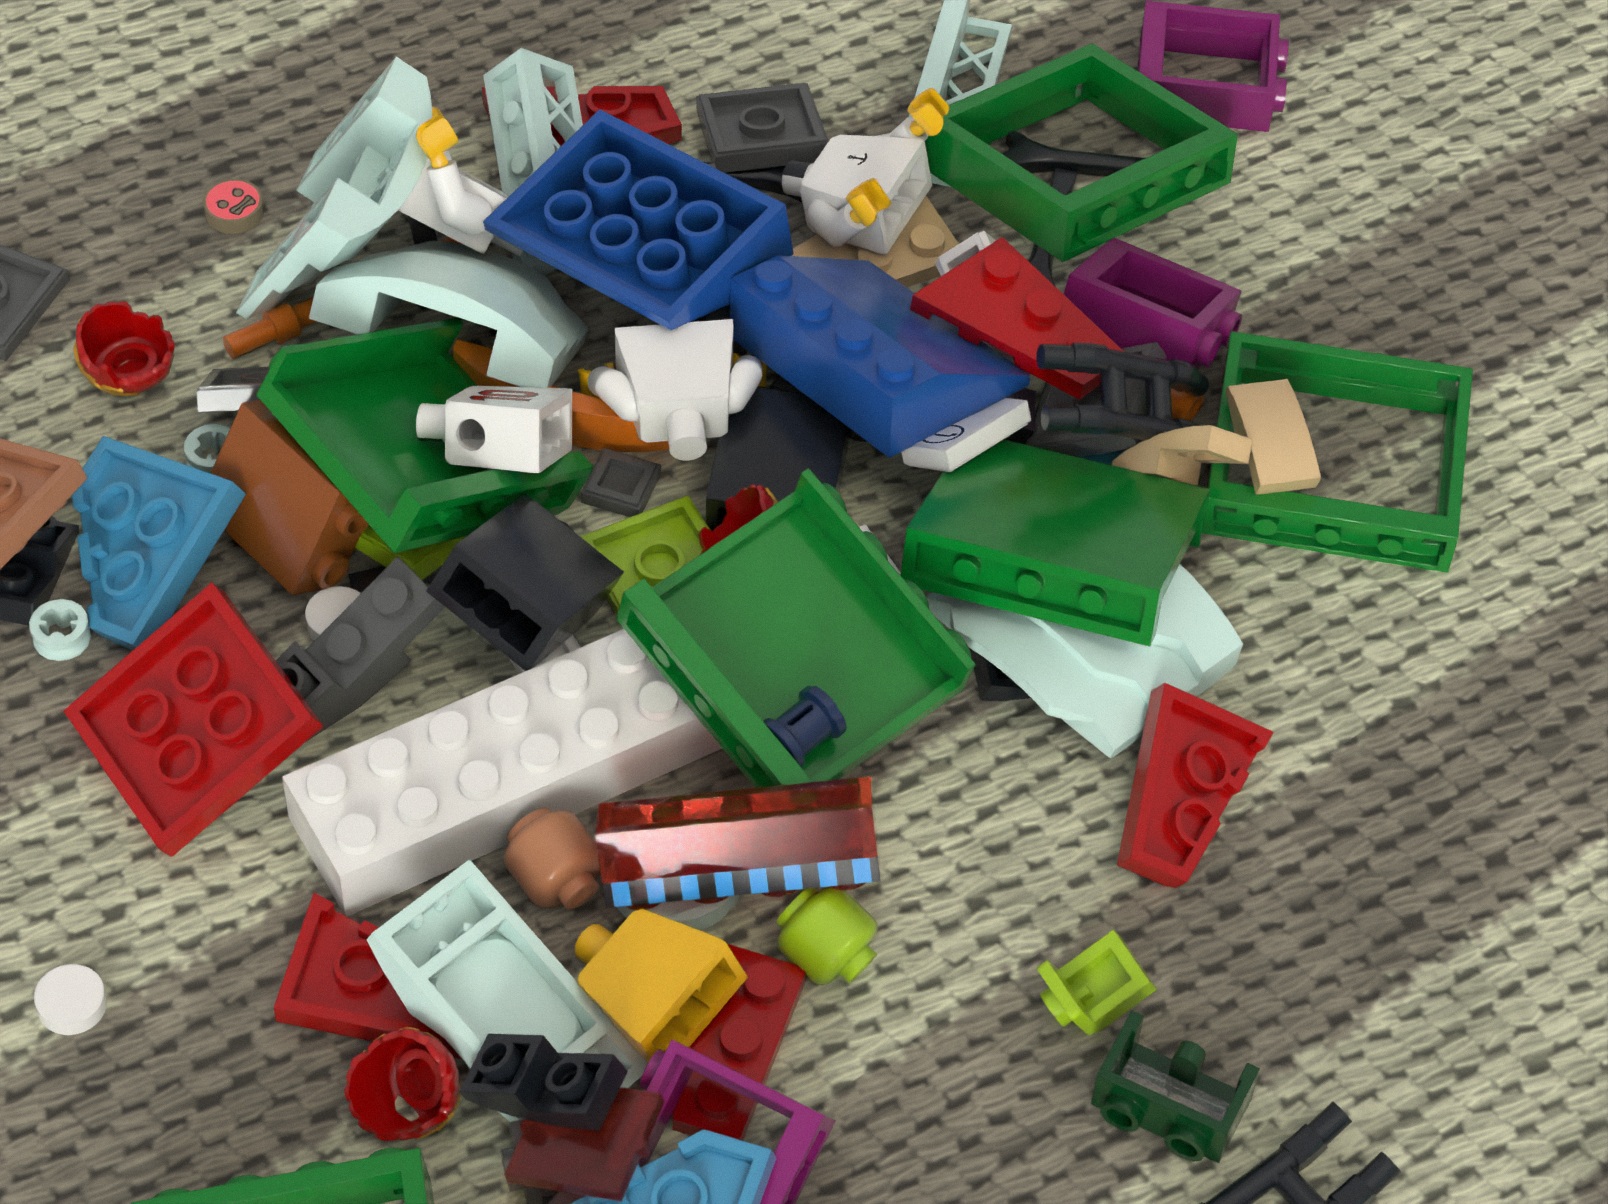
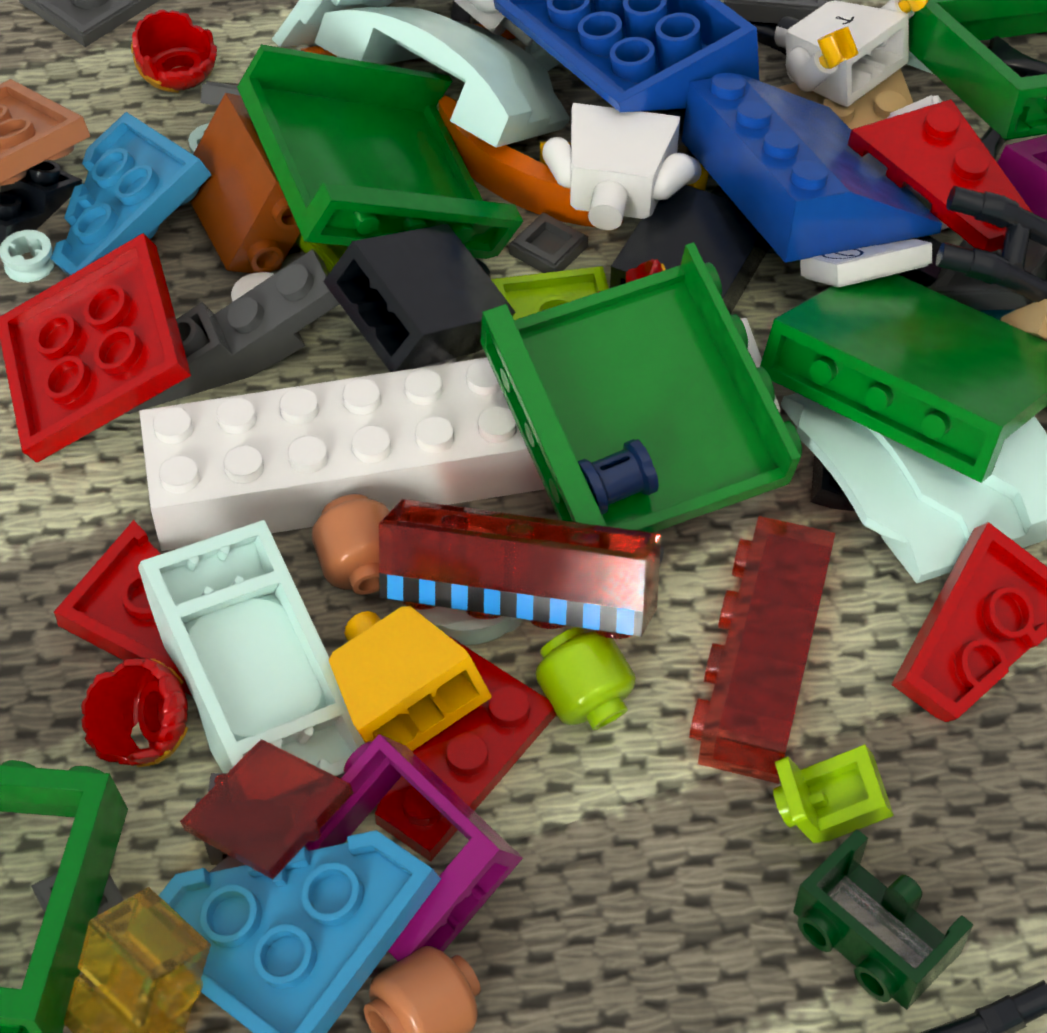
camera: 20 degrees right, 0 degrees up
(501, 427) = (446, 163): white torso -> none
(538, 1084) = (247, 744): black slope -> none
(989, 858) = (765, 649): none -> clear red brick

